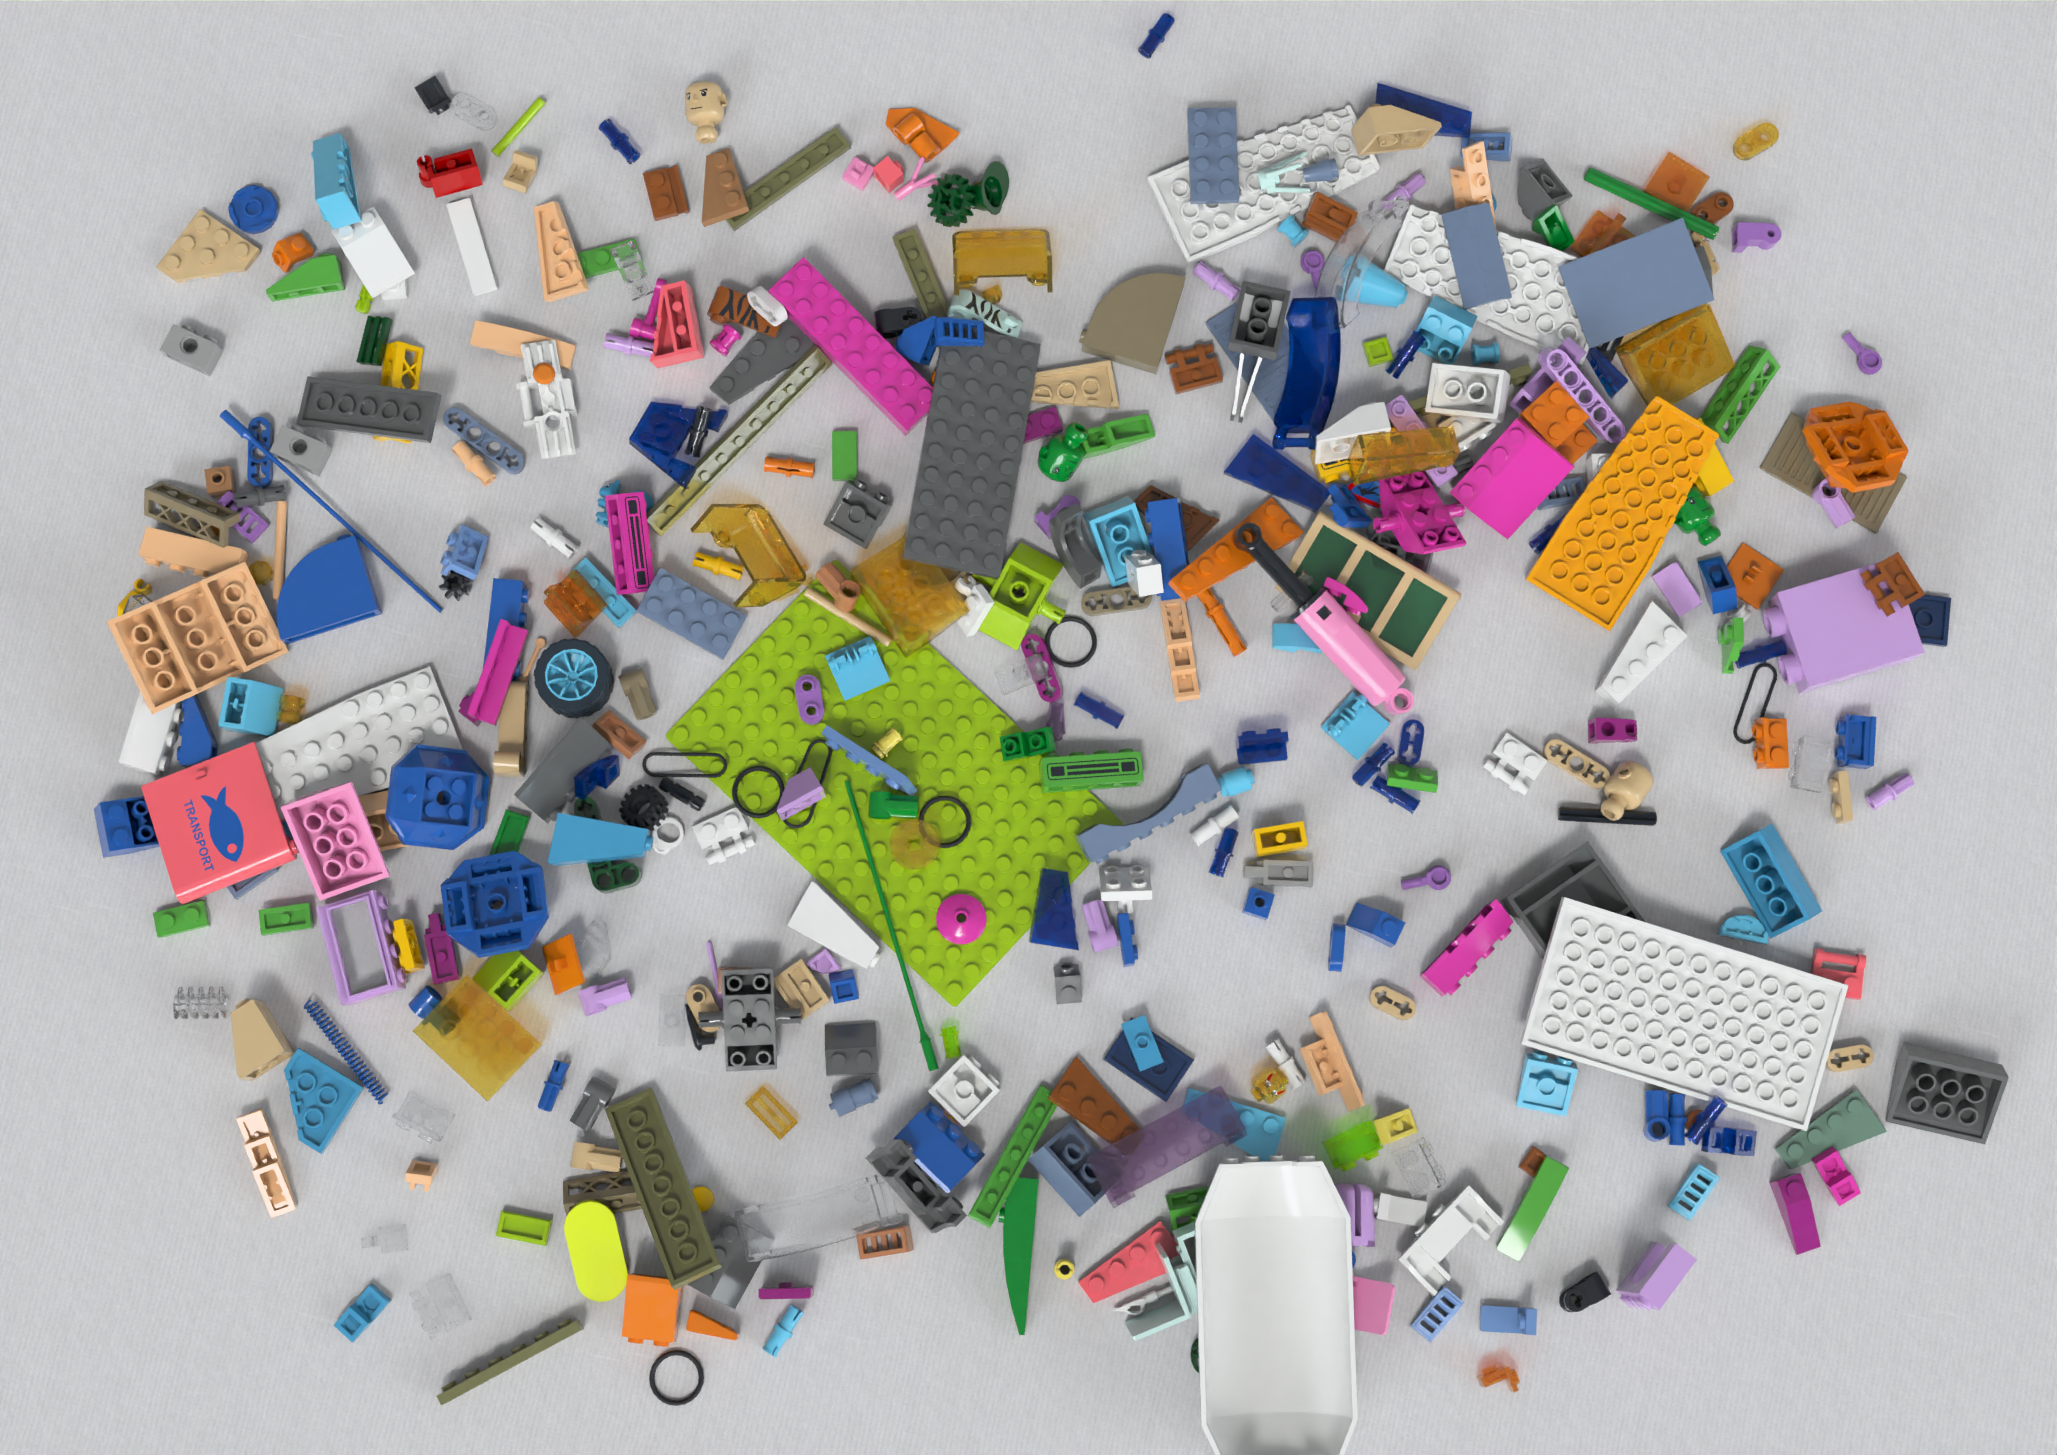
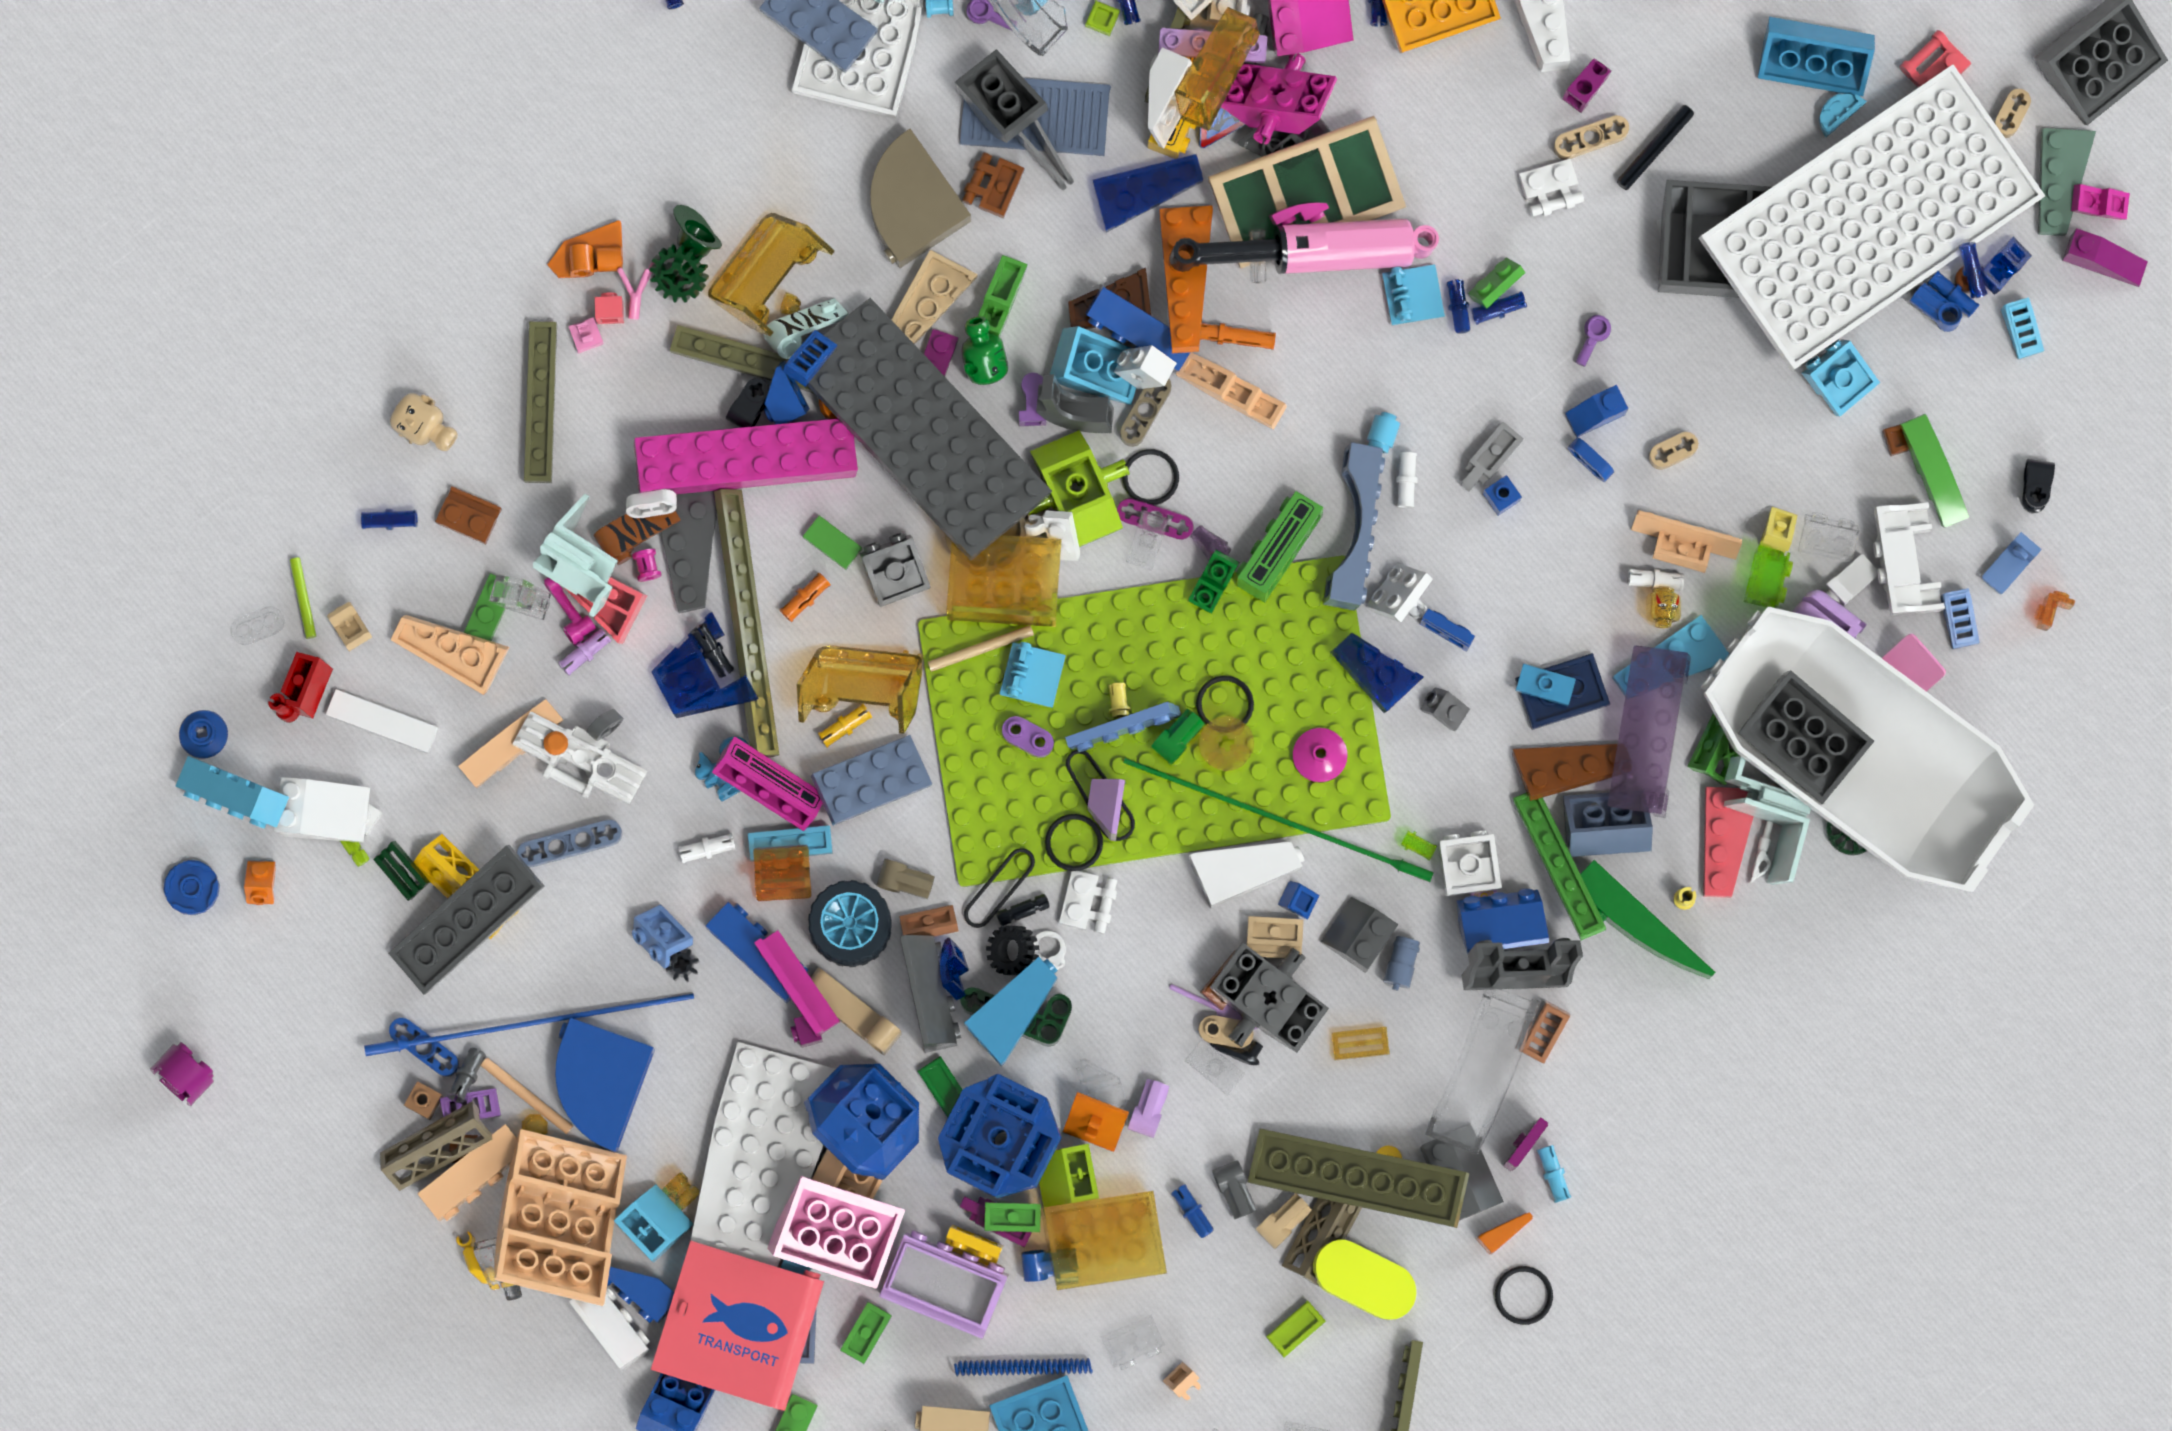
camera: 50 degrees left, 0 degrees up
(111, 301) = (183, 1074): none -> magenta brick
(202, 359) = (298, 1036): light grey brick -> none
(207, 251) = (198, 956): tan plate -> none
(311, 460) = (468, 1008): light grey brick -> none
(312, 278) = (301, 879): bright green slope -> none
(376, 142) = (205, 746): none -> blue piece
(433, 95) = (216, 650): black bracket -> none
(446, 958) = (1012, 1217): none -> bright green plate
(473, 463) = (583, 867): light nougat pin -> none
(540, 643) = (791, 932): light nougat hinge -> none
(585, 398) = (605, 725): none -> dark grey beam
(651, 1310) = (1451, 1269): orange slope -> none
(679, 281) = (575, 561): none -> light aqua piece
(722, 189) = (508, 462): medium nougat wing -> none
(823, 963) = (1265, 901): lavender tile -> none
(842, 590) = (957, 634): nougat piece -> none
(1099, 710) = (1230, 499): clear blue pin -> none
(1100, 930) = (1423, 645): lavender piece -> none
(1216, 281) = (931, 104): lavender pin -> none
(1224, 852) = (1436, 490): clear blue axle -> none
(1251, 1265) = (1805, 736): none -> dark grey slope
(1262, 748) = (1372, 388): clear blue bracket -> none
(1279, 839) = (1462, 434): yellow brick -> none
(1291, 638) = (1297, 288): medium azure slope -> none
(1311, 371) = (1080, 89): clear blue windscreen -> none
(1346, 509) = (1226, 153): blue plate -> none
(1416, 743) = (1469, 256): clear blue beam -> none
(1467, 948) = (1677, 352): dark pink wedge -> none
(1626, 789) = (1646, 113): tan piece -> none
(1655, 1276) = (2069, 413): lavender arch -> none

